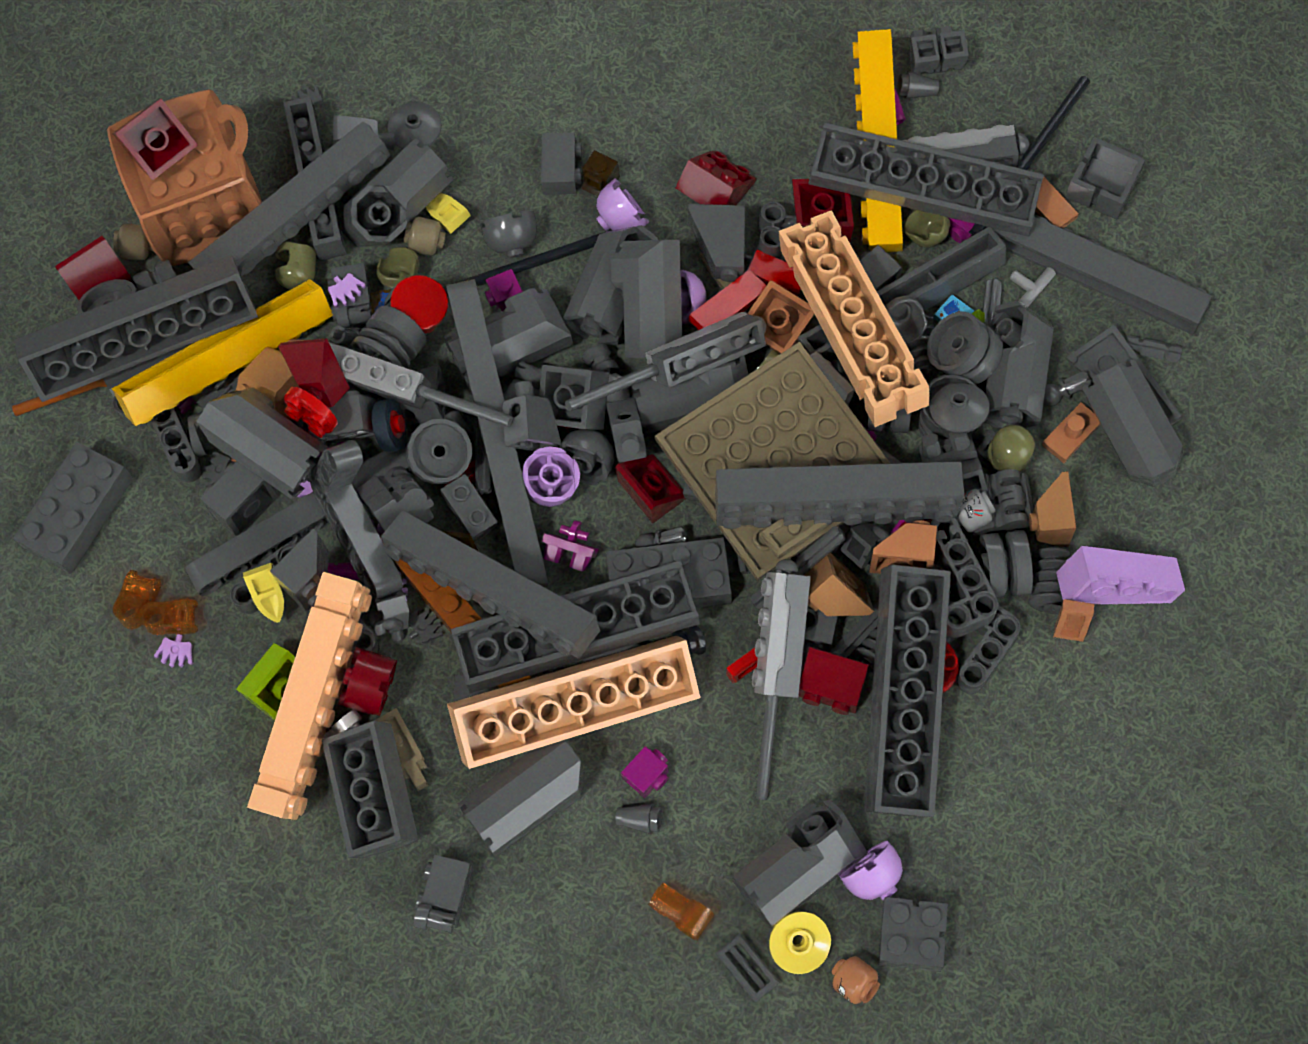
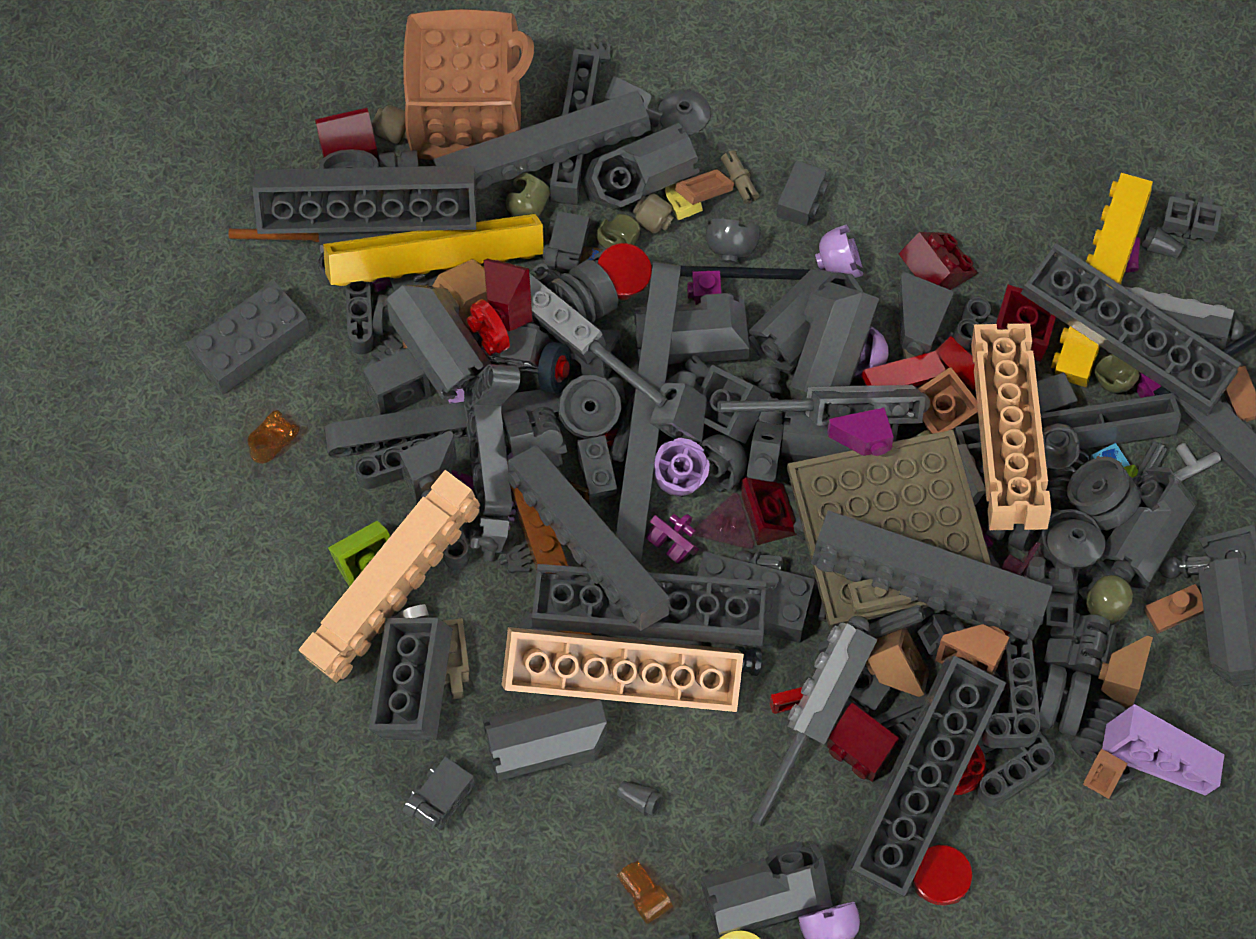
camera: 15 degrees right, 5 degrees down
(155, 139) = (447, 39): slope -> none
(175, 650) = (287, 494): lavender piece -> none
(176, 617) = (299, 467): clear orange piece -> none
(265, 592) = (387, 472): light yellow plate -> none
(344, 289) = (563, 233): lavender piece -> none
(368, 682) = (446, 585): dark red brick -> none
(463, 191) = (704, 186): none -> nougat tile
(493, 169) = (740, 177): none -> dark tan pin
(598, 172) = (834, 213): dark brown window -> none
(616, 514) = (727, 524): none -> clear pink piece
(646, 772) = (662, 759): magenta brick -> none
(716, 377) = (863, 432): none -> magenta slope
(911, 451) = (1017, 566): none -> clear pink piece
(960, 780) = (943, 875): none -> red tile
(975, 510) = (1052, 640): light grey head -> none

